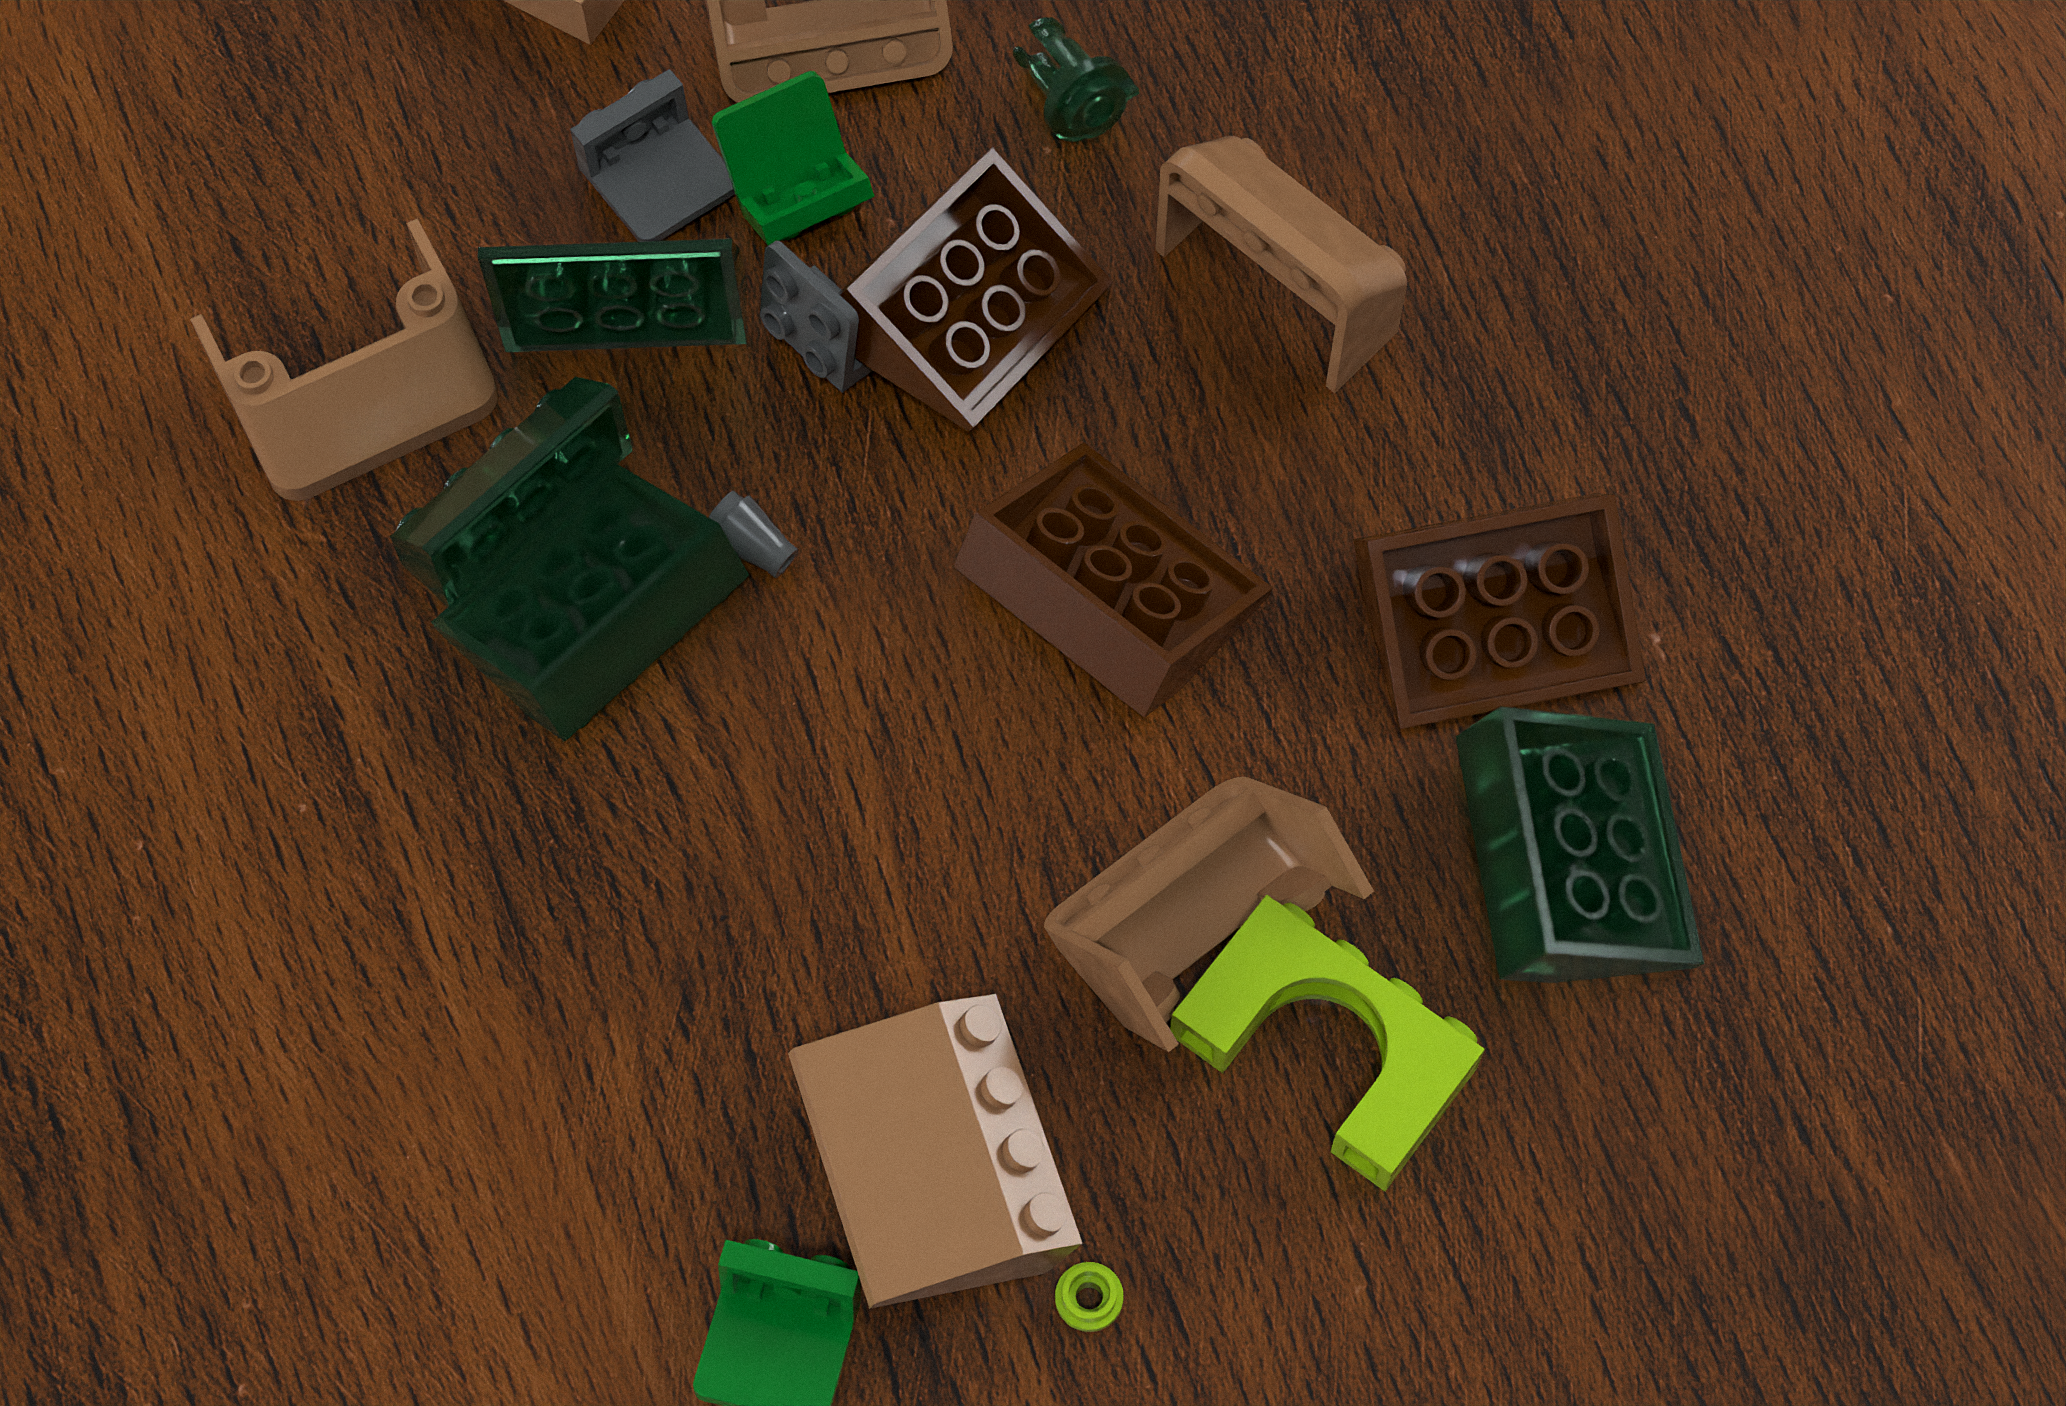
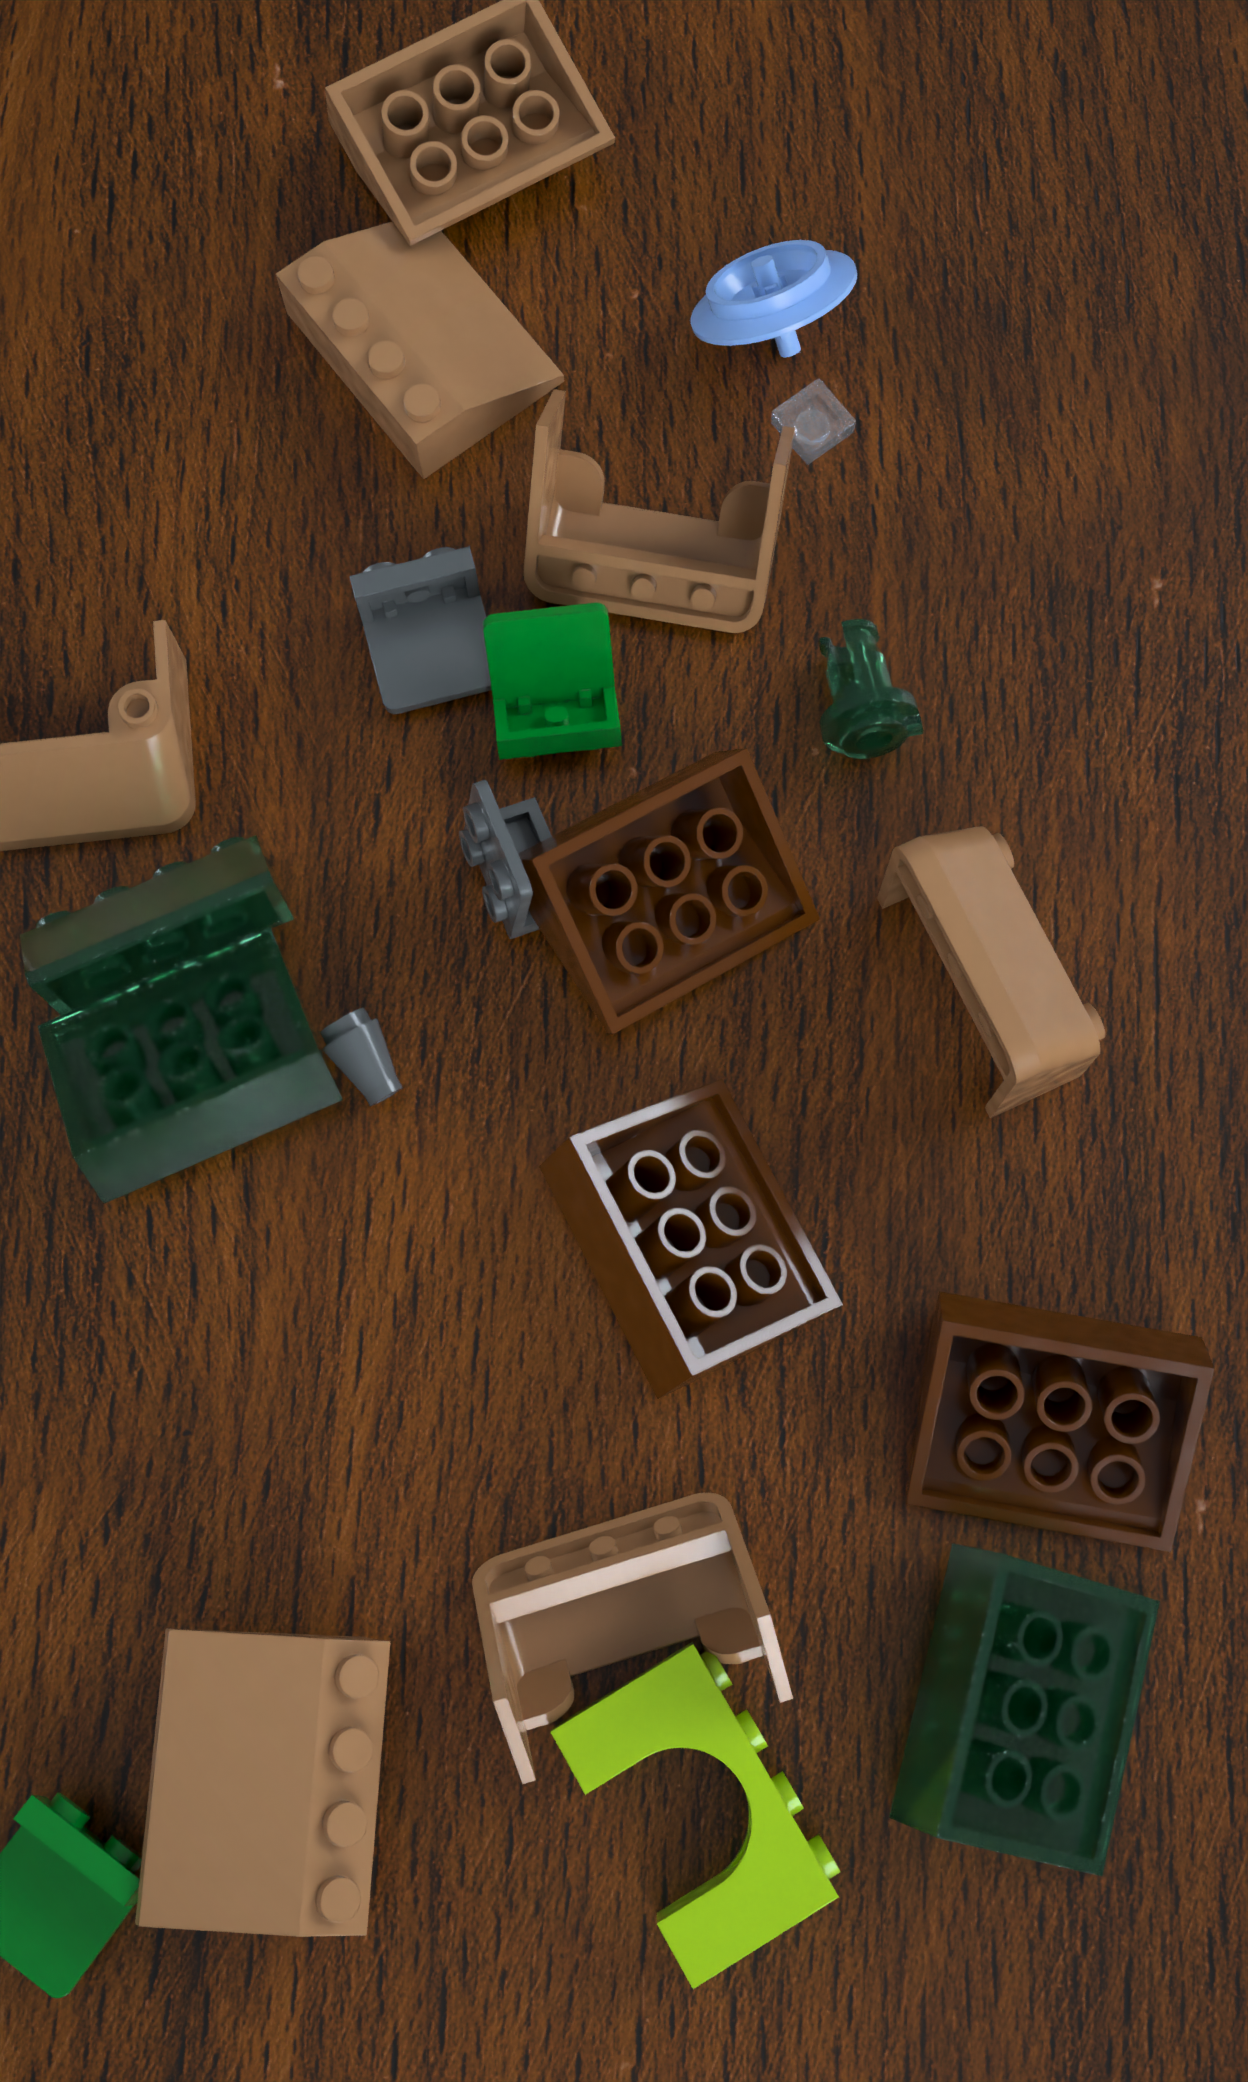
camera: 25 degrees right, 10 degrees up
(617, 294) = (330, 760): clear green slope -> none
(1089, 1276) = (351, 1989): lime plate -> none

